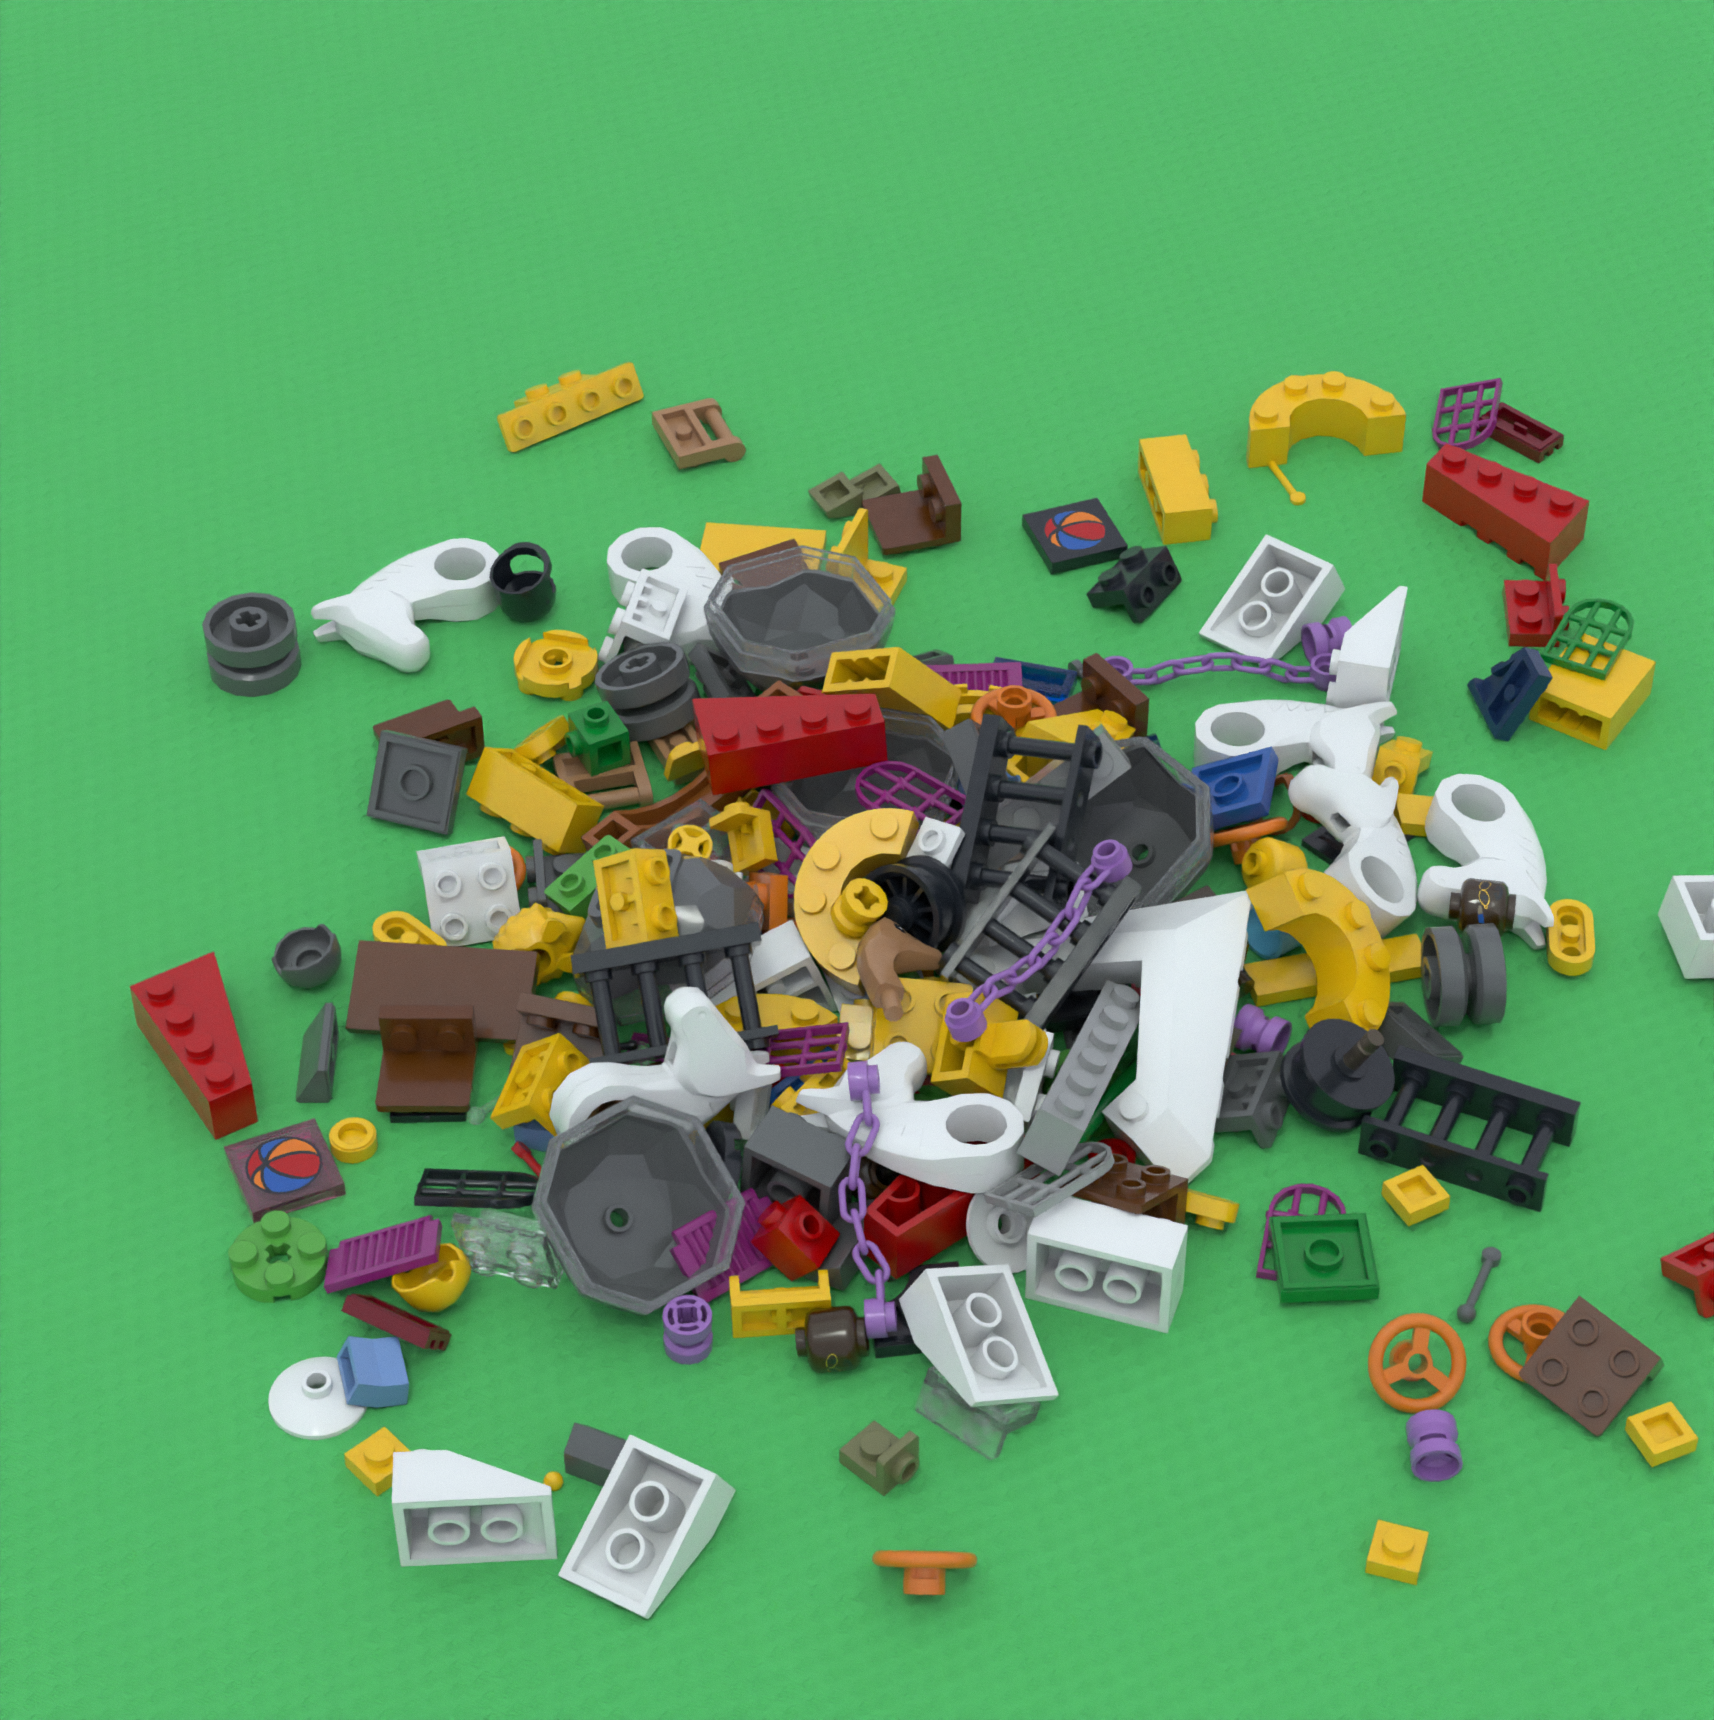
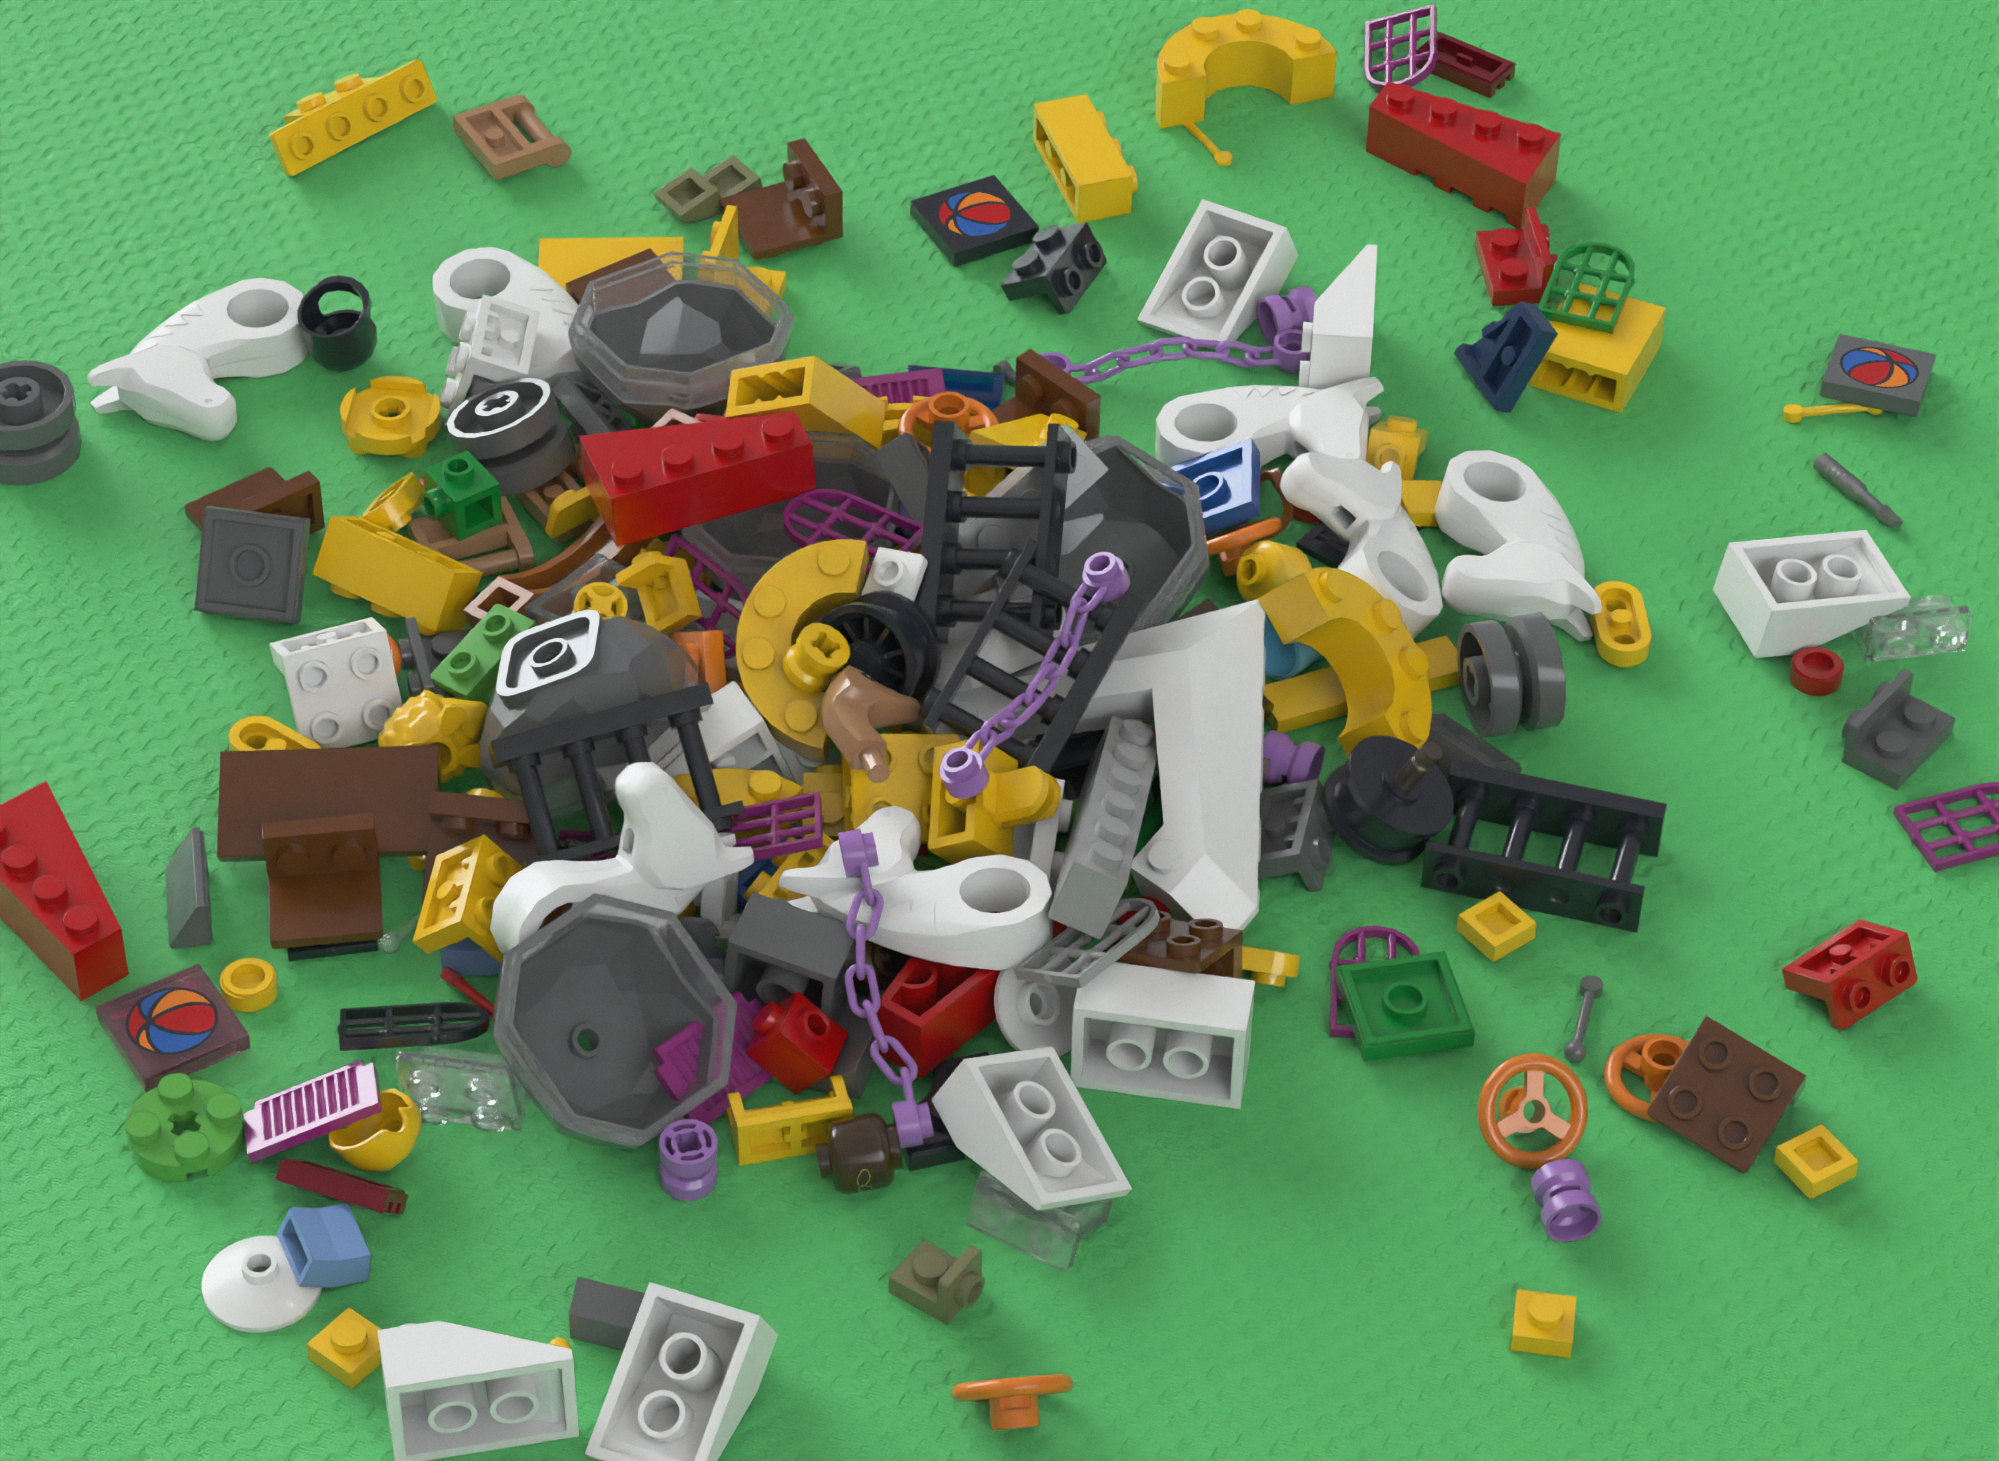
camera: 10 degrees left, 0 degrees up
(307, 956) = (156, 778): dark grey hair -> none
(635, 897) = (556, 667): yellow bracket -> none
(1483, 903) = (1522, 591): dark brown head -> none

